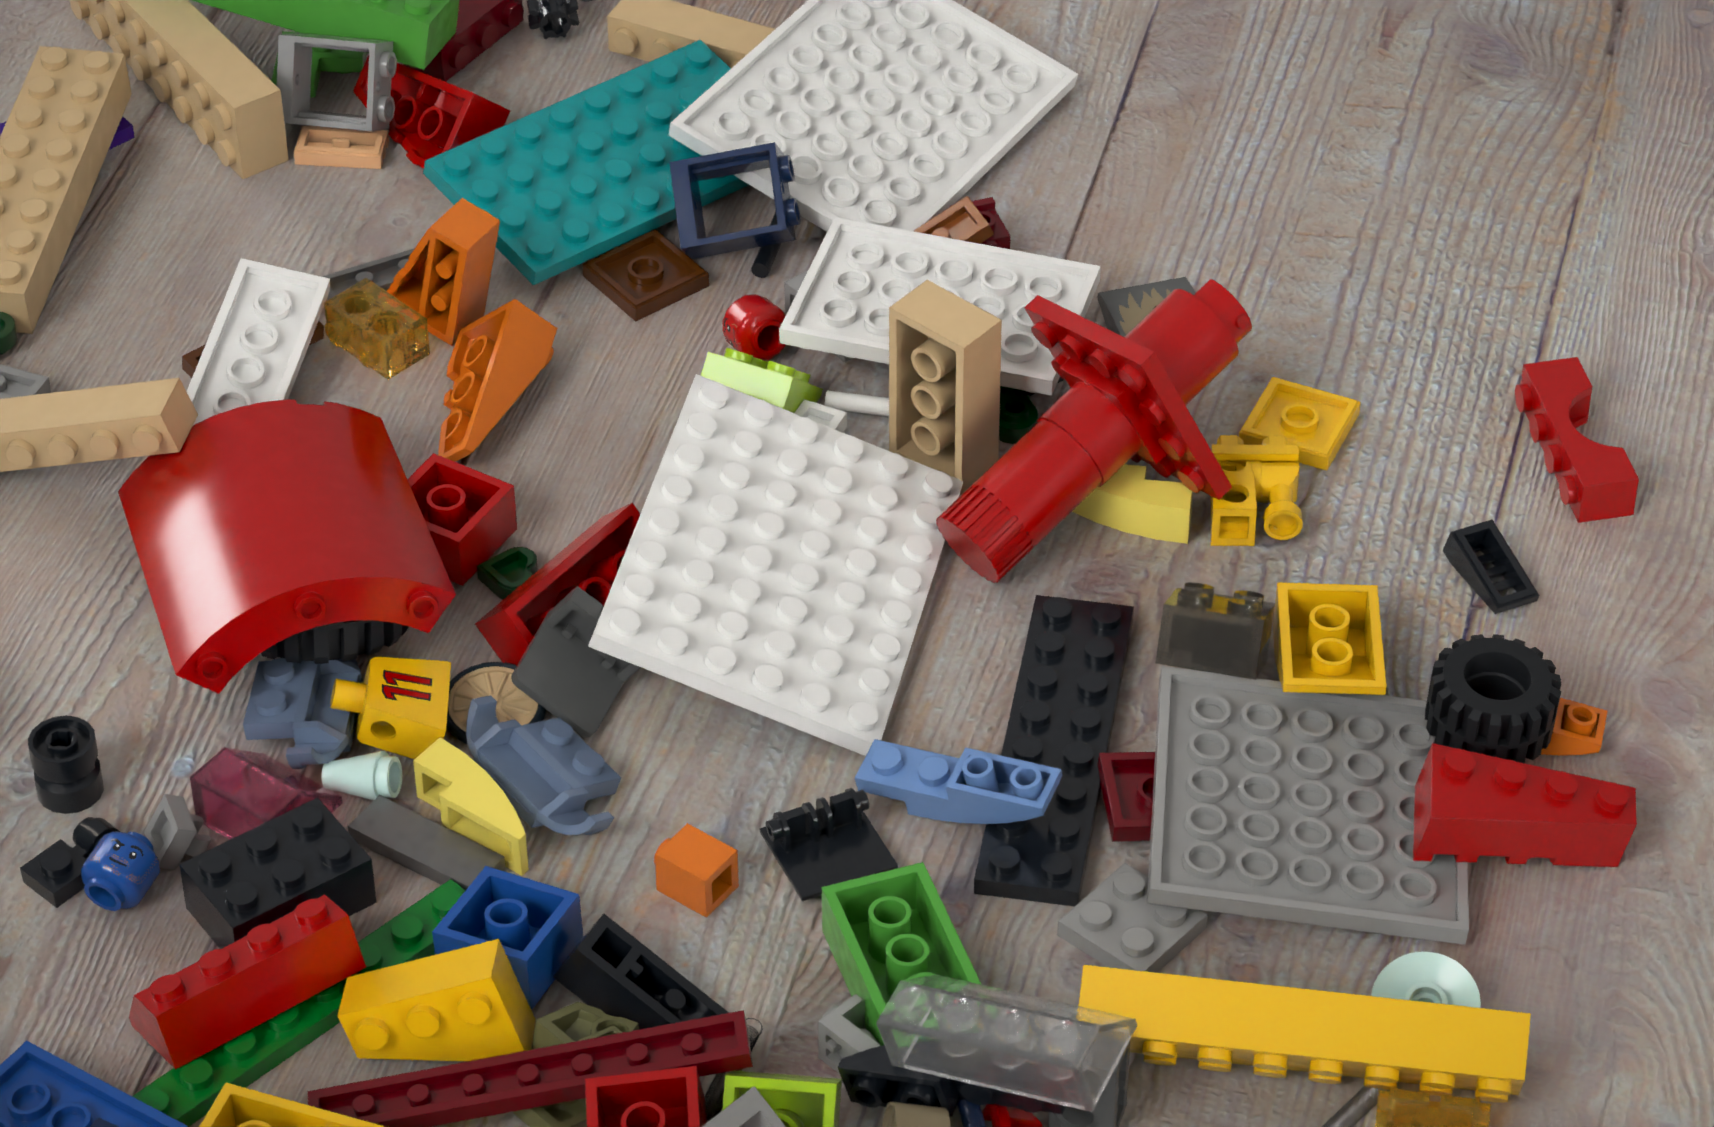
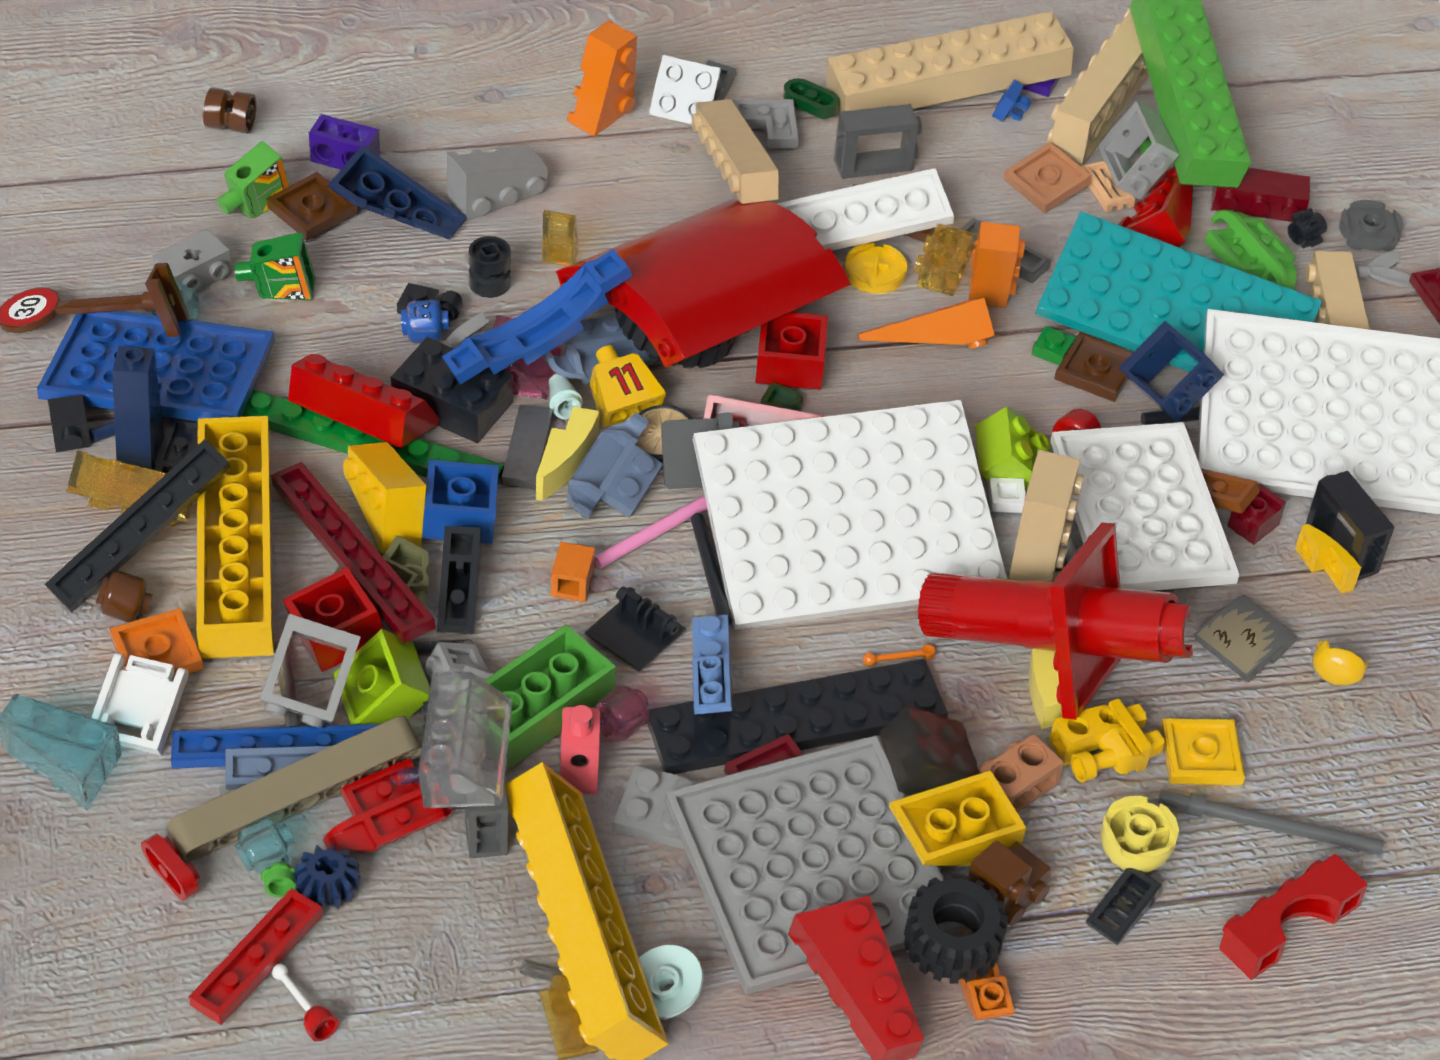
camera: 60 degrees right, 5 degrees up
(72, 671) = (558, 245): none -> clear yellow slope
(129, 298) = (871, 122): none -> dark grey window
(131, 165) = (1011, 101): none -> blue tile
(283, 707) = (543, 325): none -> blue piece
(292, 188) = (1047, 177): none -> nougat plate
(337, 385) = (875, 268): none -> yellow tile
(547, 69) = (1252, 248): none -> bright green plate
(585, 297) = (1052, 345): none -> green plate
(660, 765) = (650, 532): none -> bright pink bar
(763, 740) = (710, 566): none -> black bar
(788, 1043) = (453, 658): none -> light grey bracket
(973, 901) = (622, 712): none -> clear pink head
(1015, 595) = (927, 652): none -> orange hinge
(1020, 949) = (580, 737): none -> coral torso
(1058, 134) = (1372, 528): none -> black window
(1083, 203) = (1326, 554): none -> yellow slope
(1248, 264) = (1338, 665): none -> yellow hair
(1259, 560) = (1025, 771): none -> nougat brick
(1382, 452) = (1198, 805): none -> dark grey bar
(1420, 505) = (1138, 833): none -> light yellow cylinder
(1420, 630) = (1013, 875): none -> reddish brown brick

